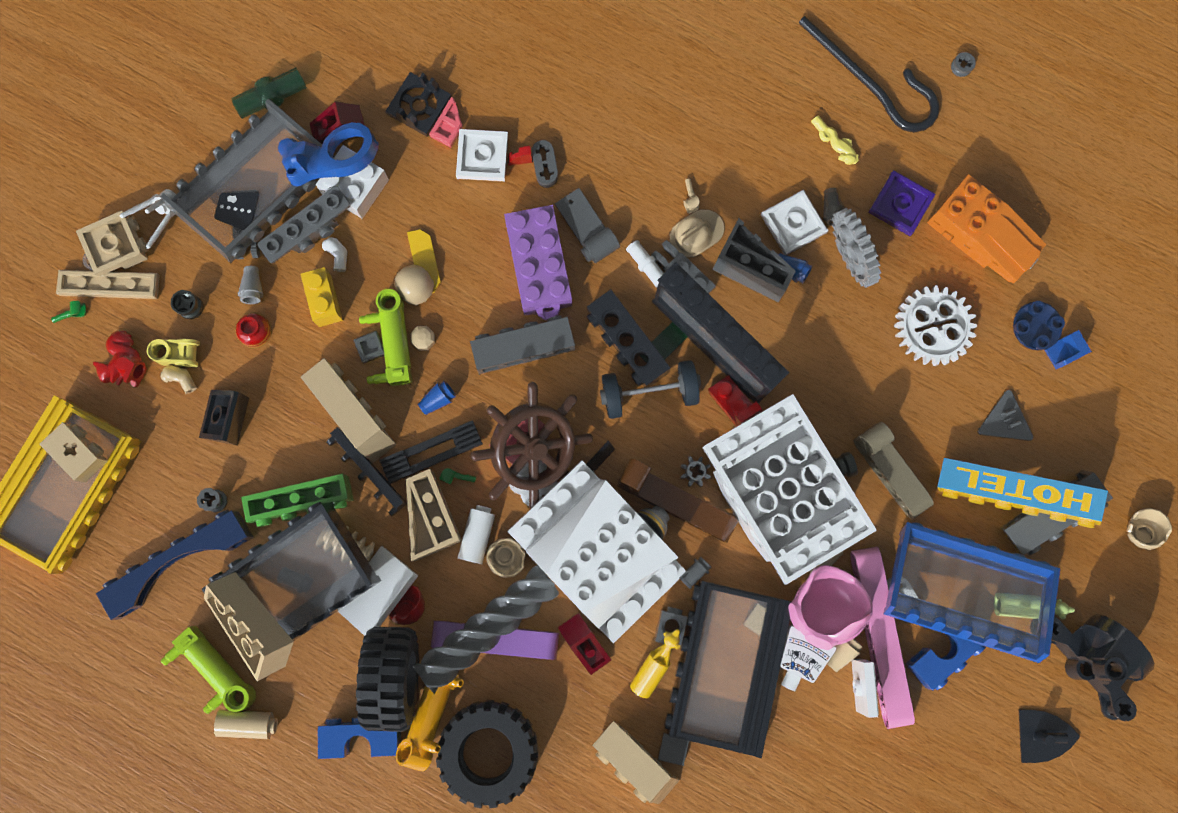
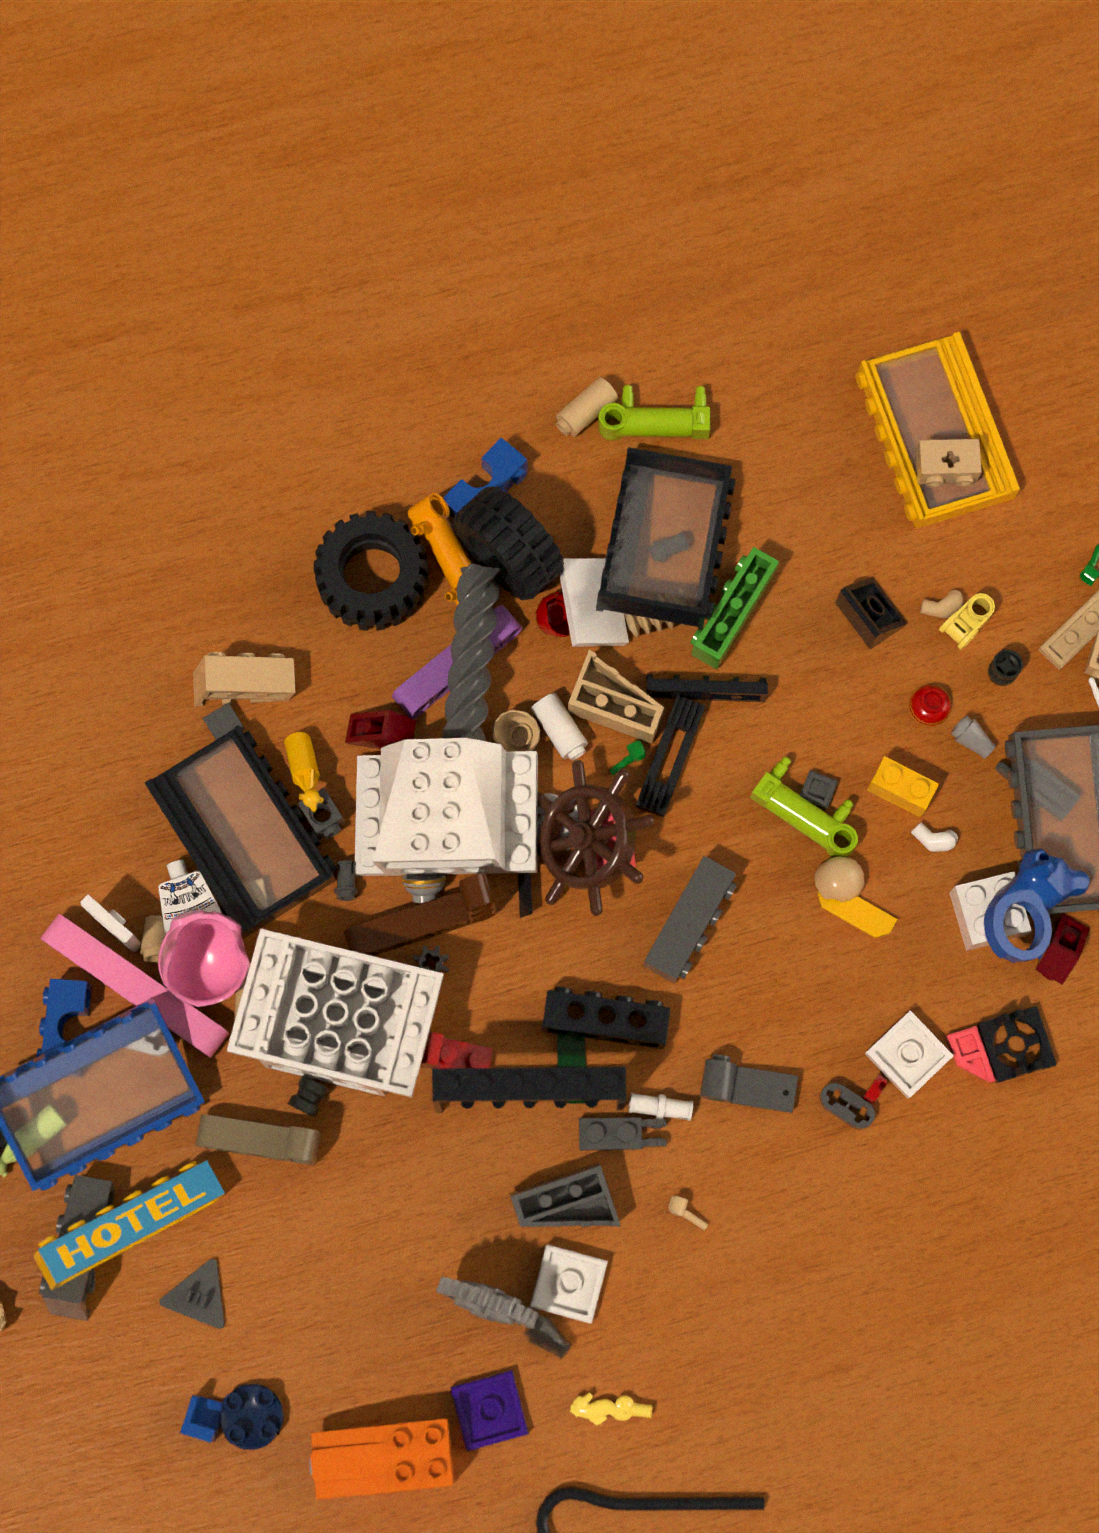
camera: 135 degrees right, 5 degrees down
(125, 363) = (999, 573): red animal -> none
(129, 593) = (786, 410): dark blue arch -> none
(206, 495) = (809, 545): dark grey bush -> none
(236, 208) = (1055, 784): black sticker -> none
(249, 625) = (662, 474): tan wedge -> none
(305, 227) = (981, 828): dark grey bracket -> none
(348, 410) = (774, 717): tan wedge -> none
(422, 338) = (782, 842): tan tile -> none
(437, 398) = (714, 804): blue cone -> none
(538, 261) = (754, 1007): medium lavender piece -> none
(688, 383) = (568, 954): black axle -> none
(697, 232) = (646, 1185): tan piece -> none
(800, 266) = (527, 1239): blue cone -> none
(941, 346) = (321, 1301): white gear -> none

